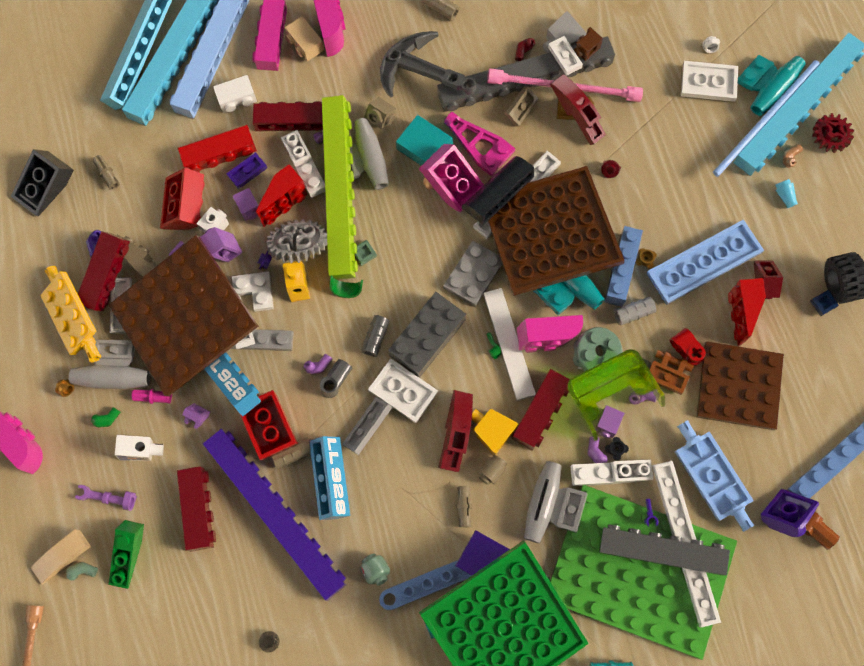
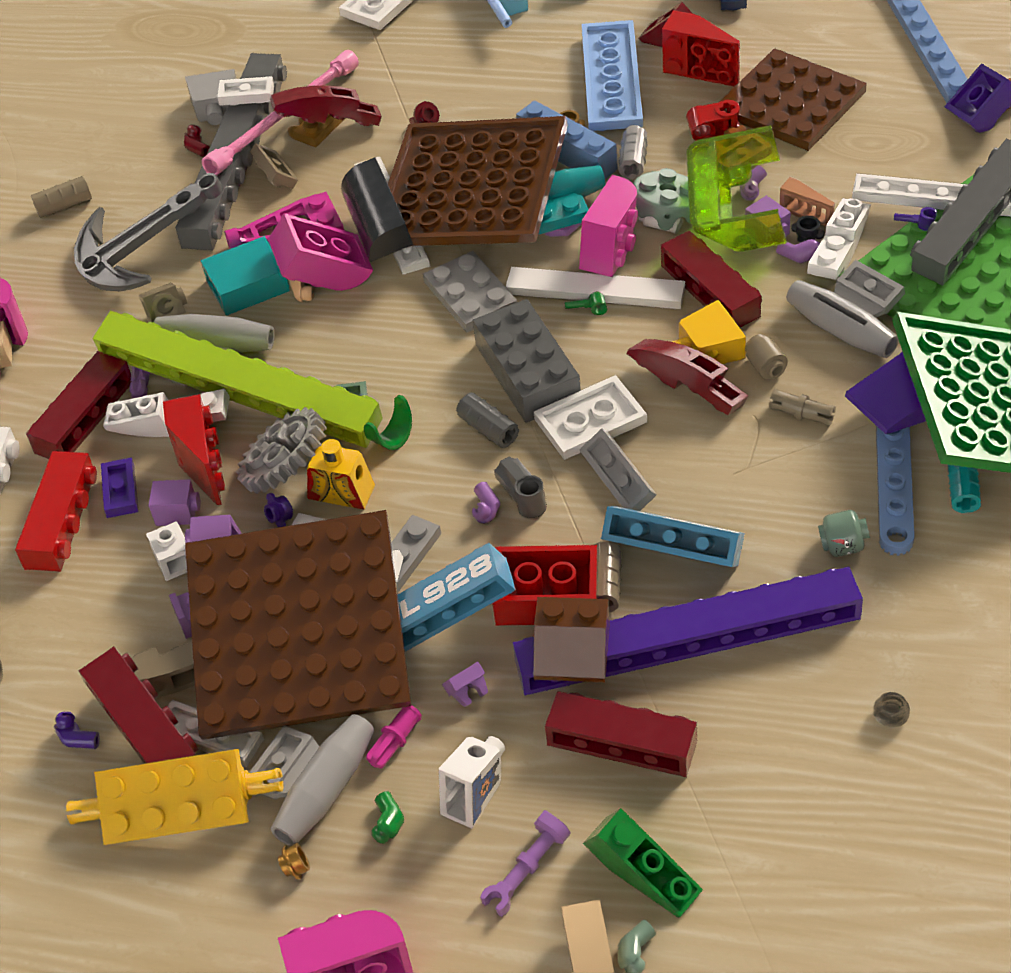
camera: 60 degrees left, 25 degrees down
(182, 200) = (100, 583): red slope -> none
(226, 460) = (571, 639): none -> reddish brown slope
(588, 44) = (248, 61): reddish brown brick -> none
(638, 432) = (800, 200): none -> nougat slope
(714, 476) = (898, 152): light blue plate -> none

